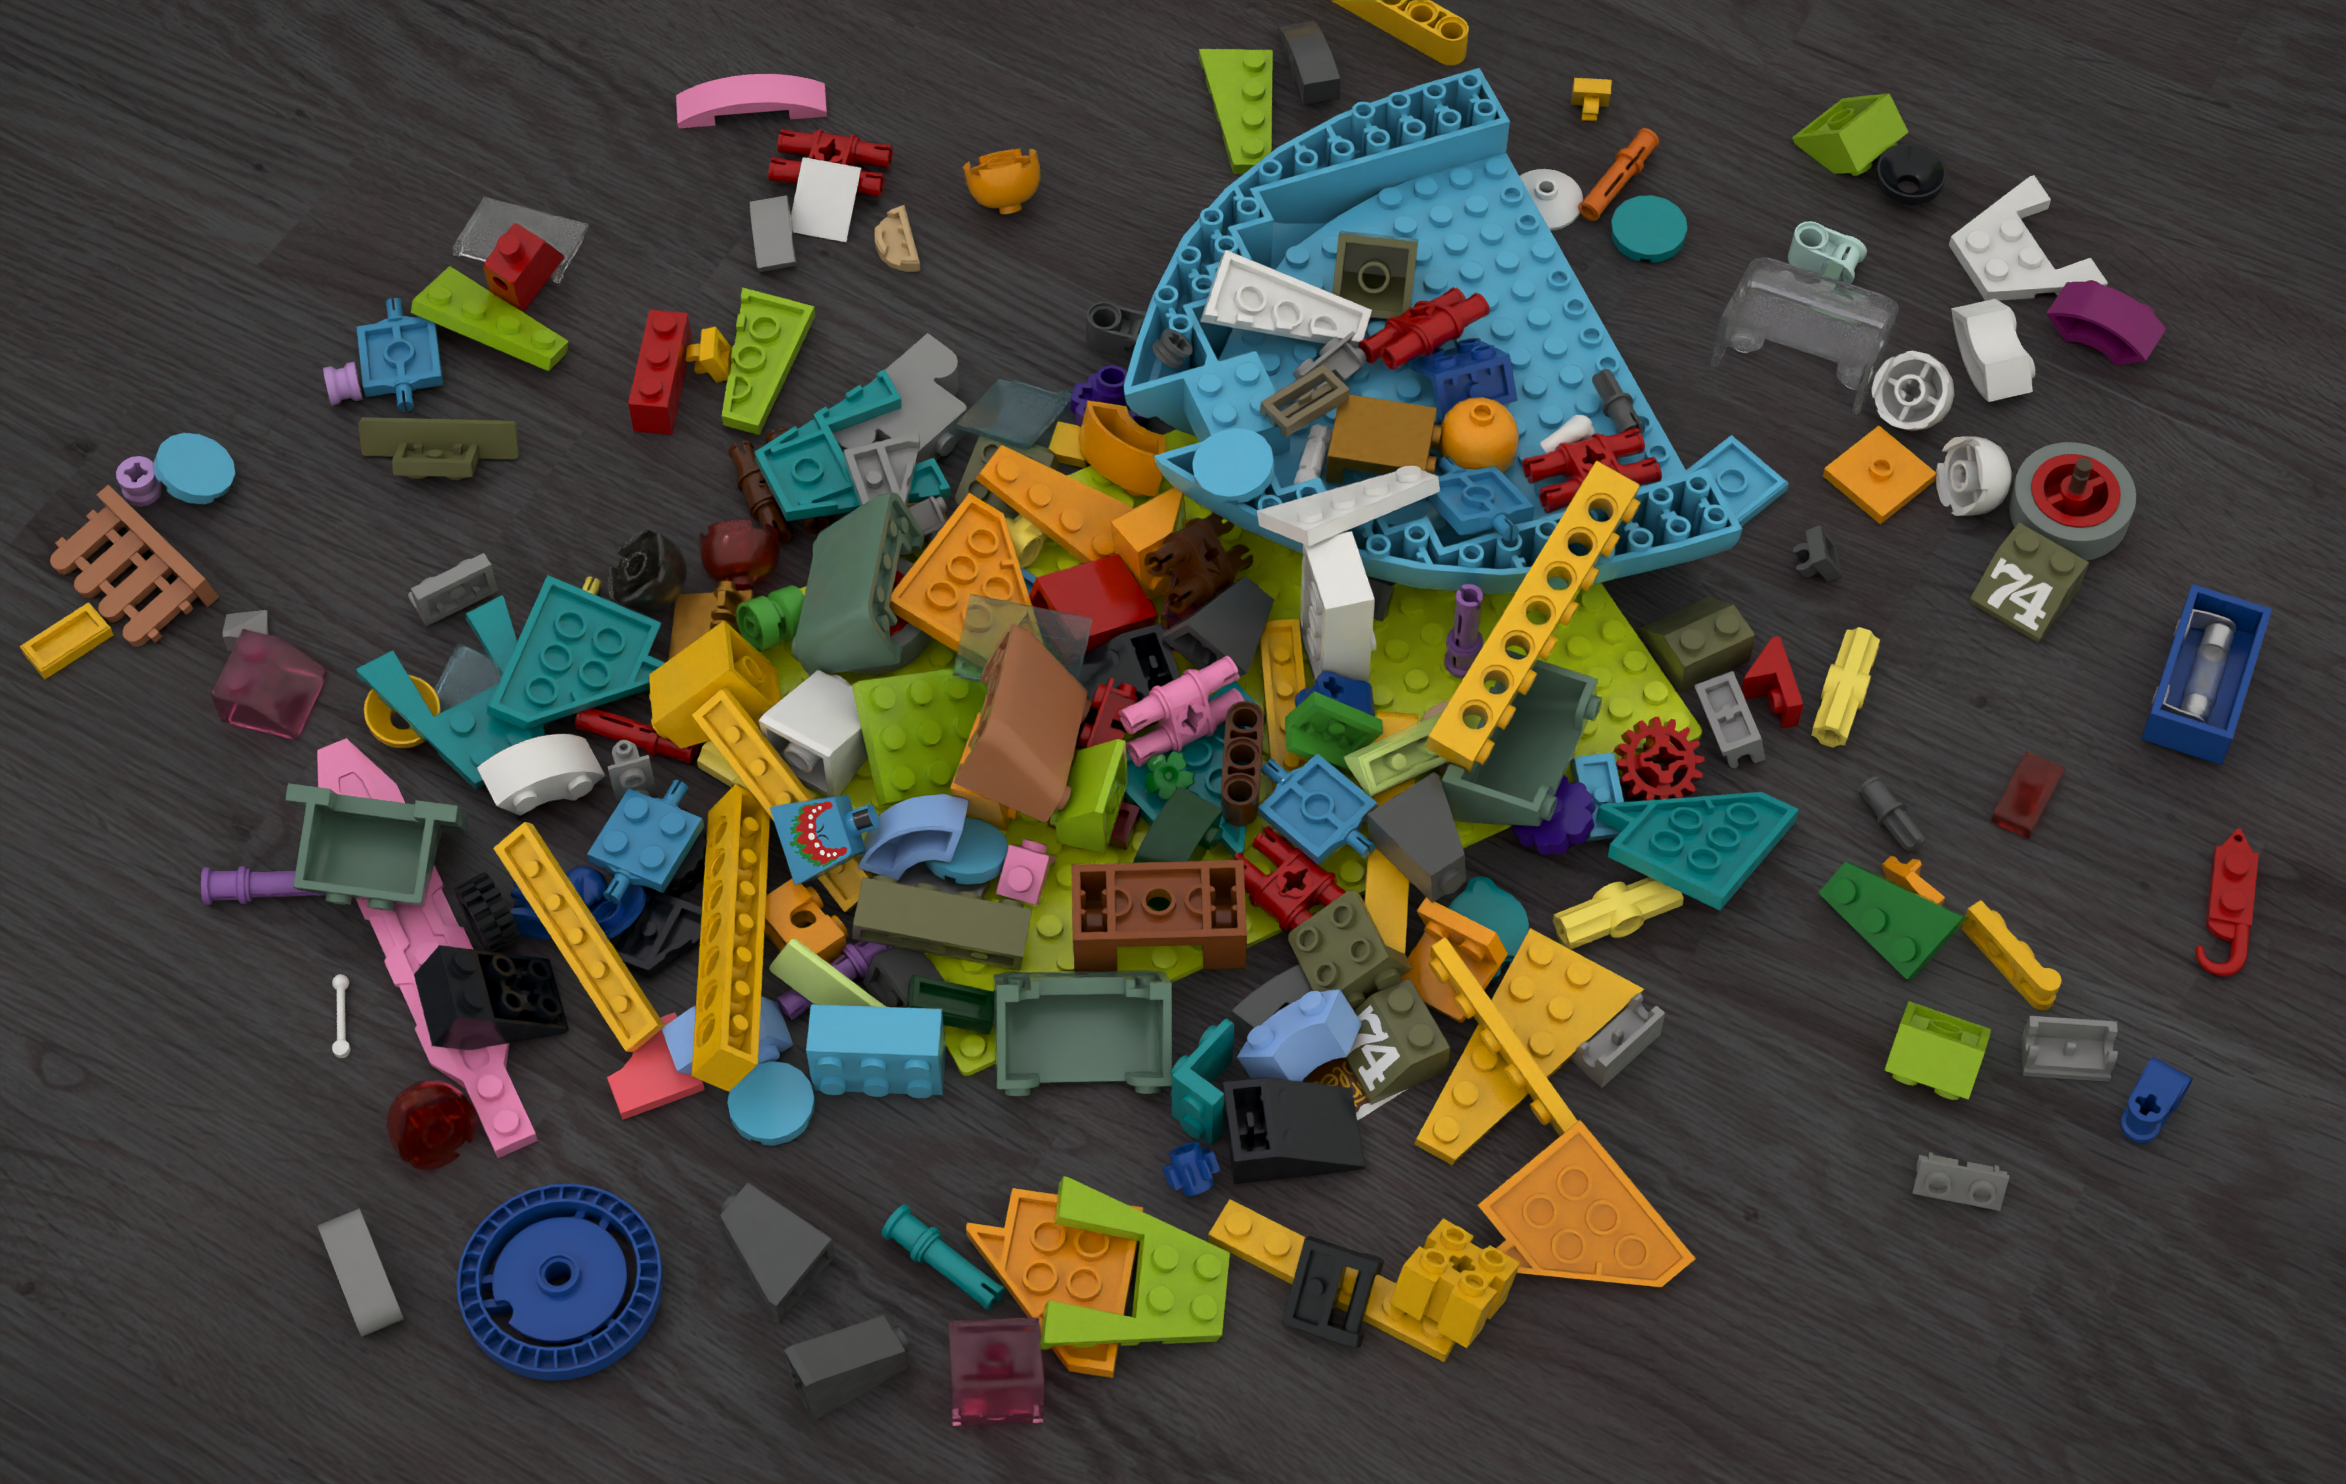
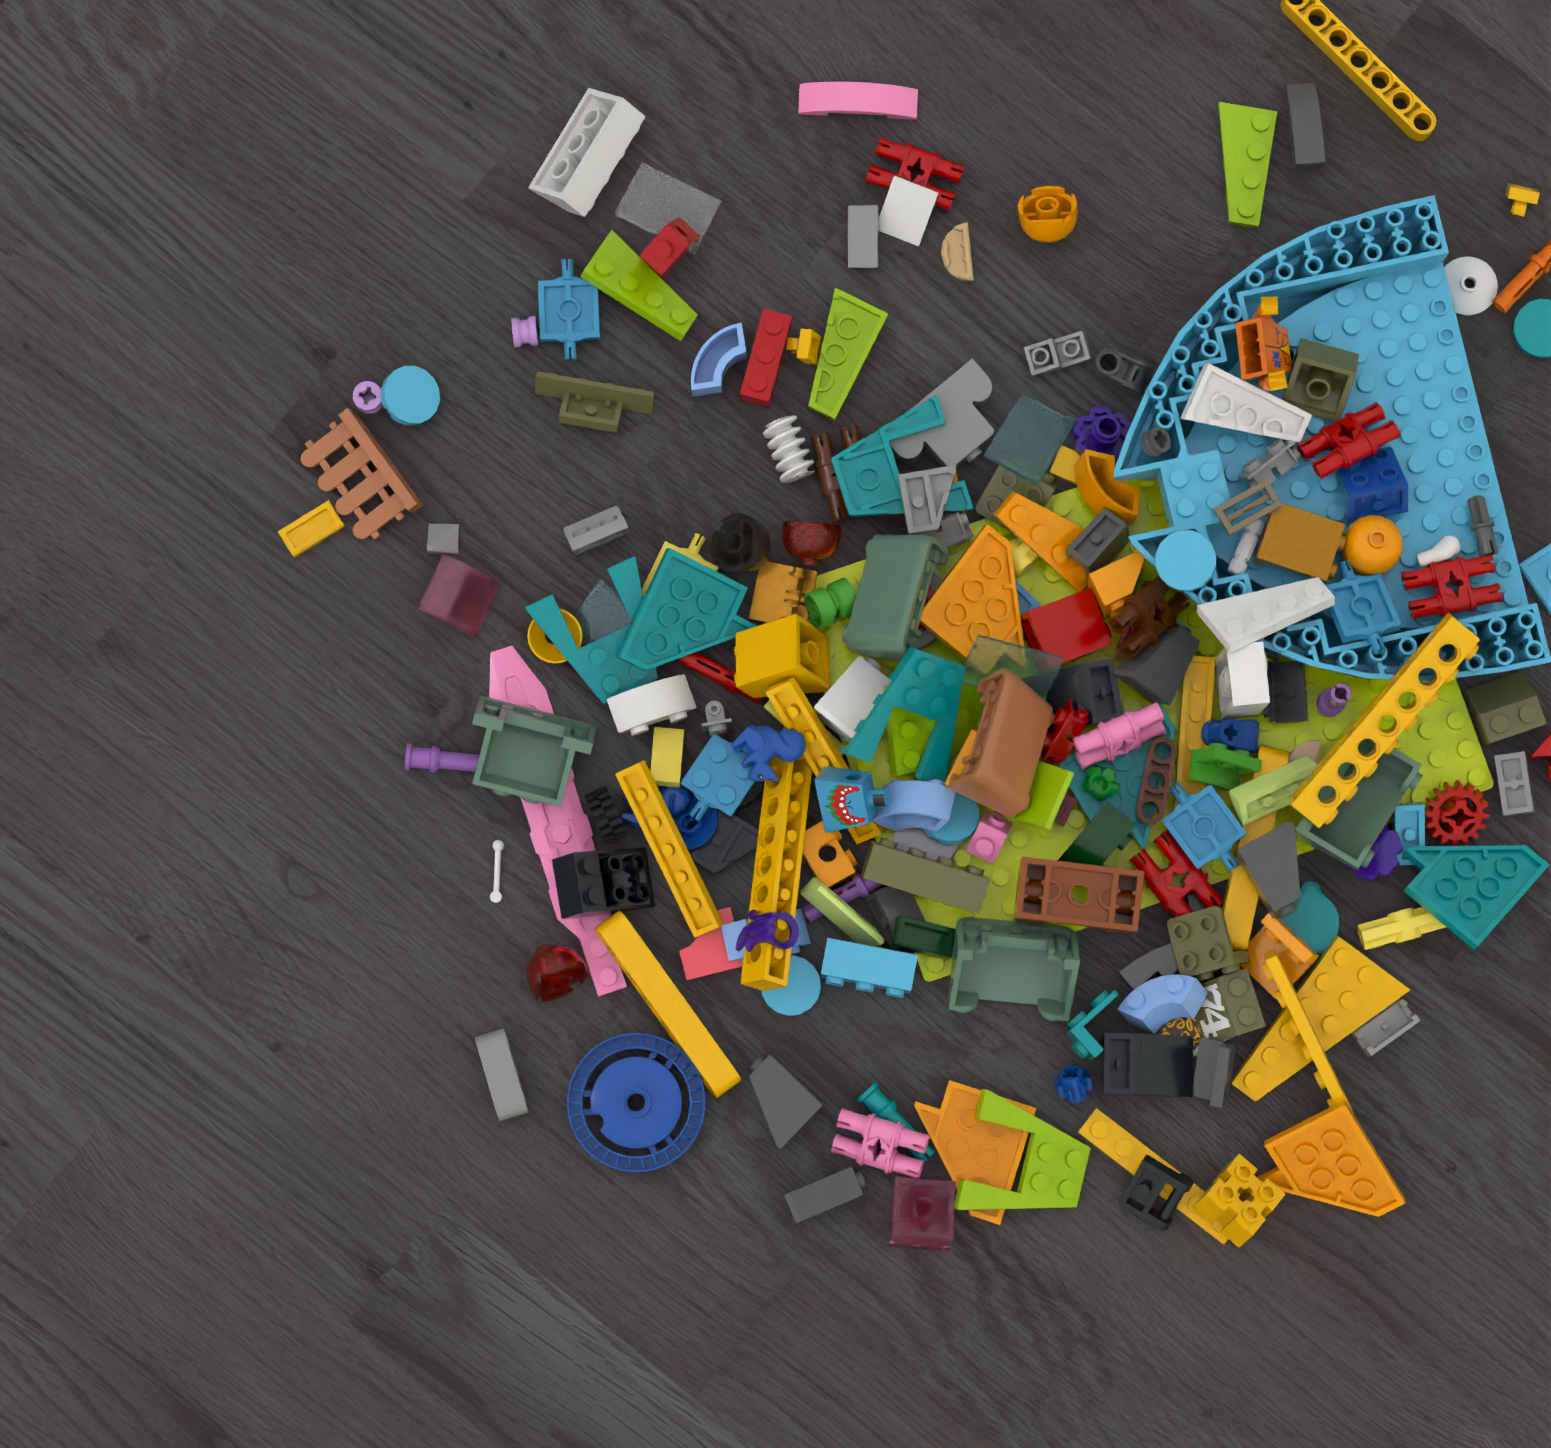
camera: 10 degrees right, 25 degrees up
(414, 188) = (587, 151): none -> white slope
(569, 835) = (667, 756): none -> light yellow tile
(594, 1140) = (667, 1003): none -> yellow beam
(596, 377) = (716, 358): none -> light blue brick
(696, 782) = (765, 743): none -> blue animal
(701, 466) = (788, 449): none -> white piece
(716, 992) = (763, 930): none -> dark purple piece
(908, 1298) = (876, 1131): none -> bright pink pin
(910, 674) = (927, 688): none -> teal wing
(1047, 327) = (1058, 353): none -> light grey slope
(1119, 493) = (1099, 542): none -> dark grey panel
(1291, 232) = (1264, 347): none -> orange torso
(1388, 1123) = (1214, 1070): none -> dark grey panel
(1402, 651) = (1286, 693): none -> black bracket

